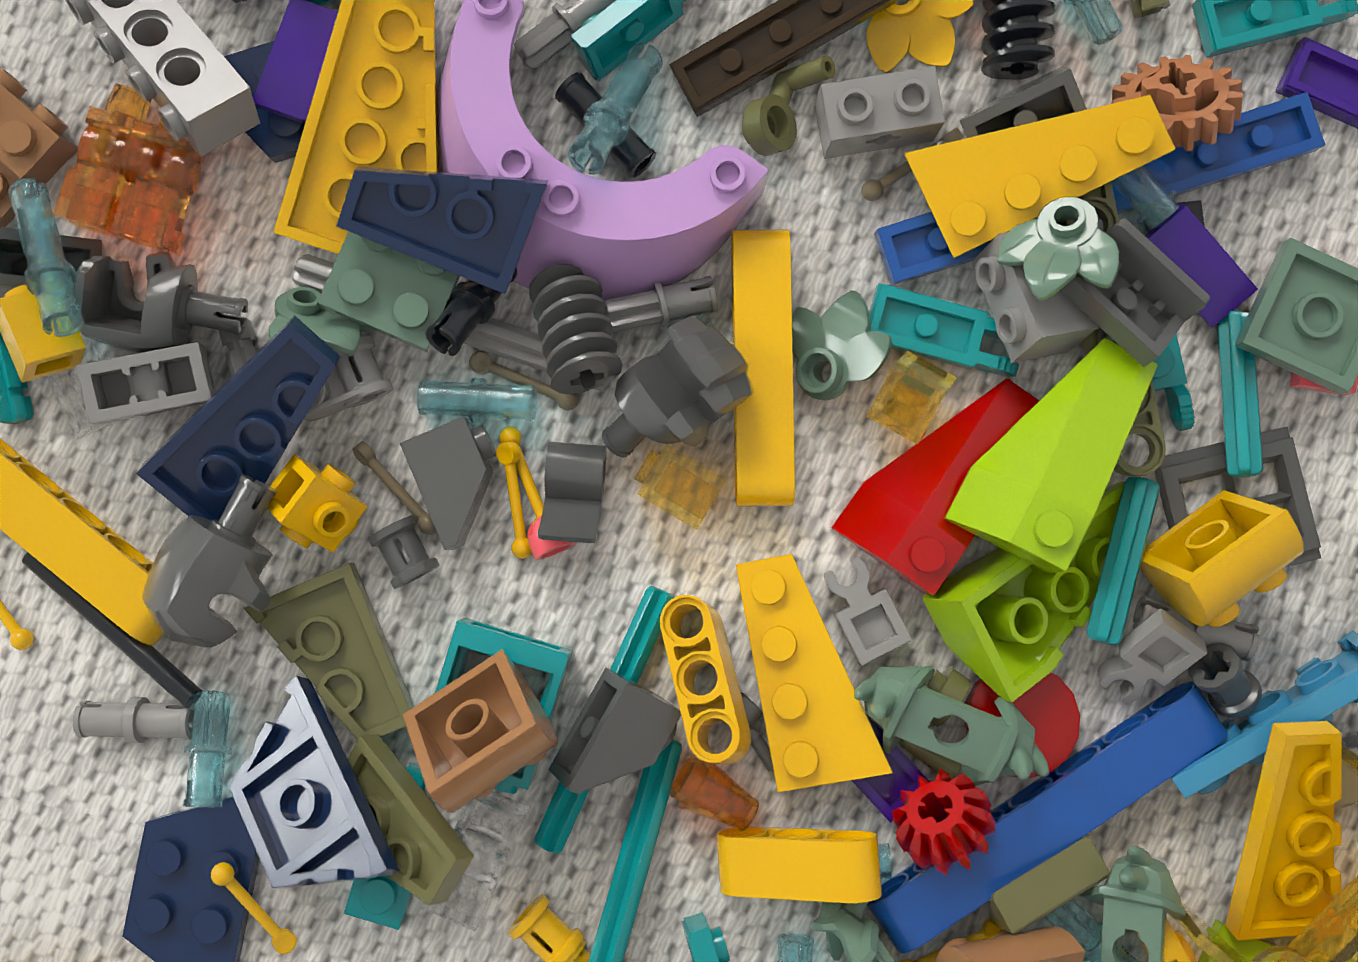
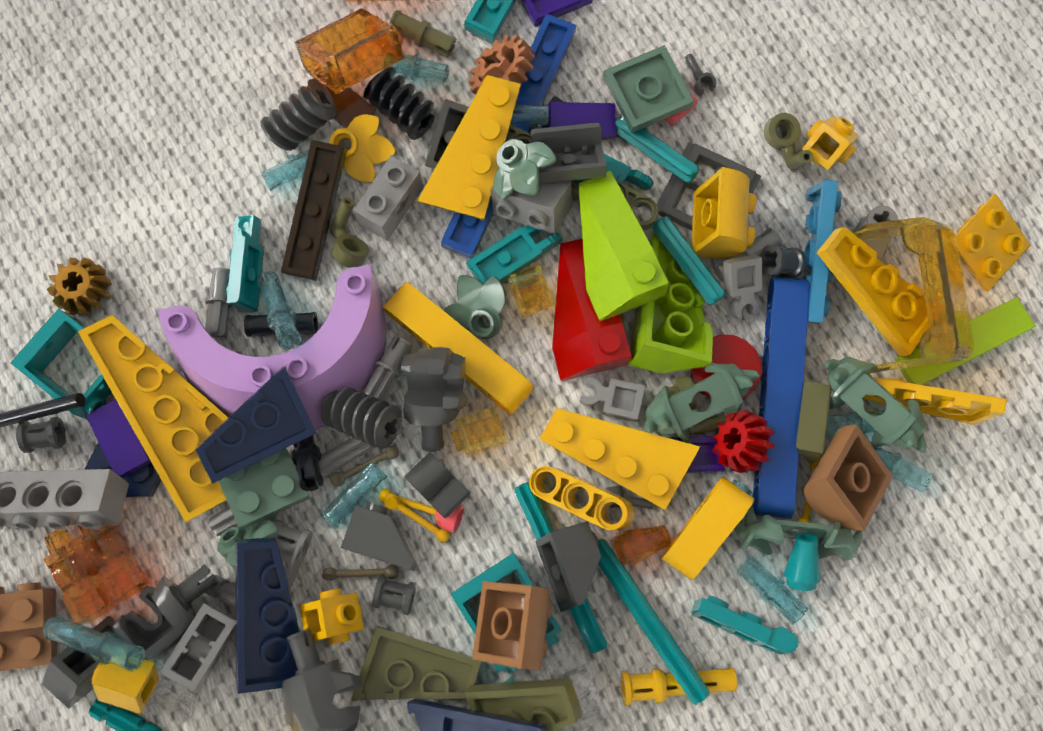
camera: 50 degrees left, 10 degrees down
(873, 189) = (421, 230): dark tan hinge -> none

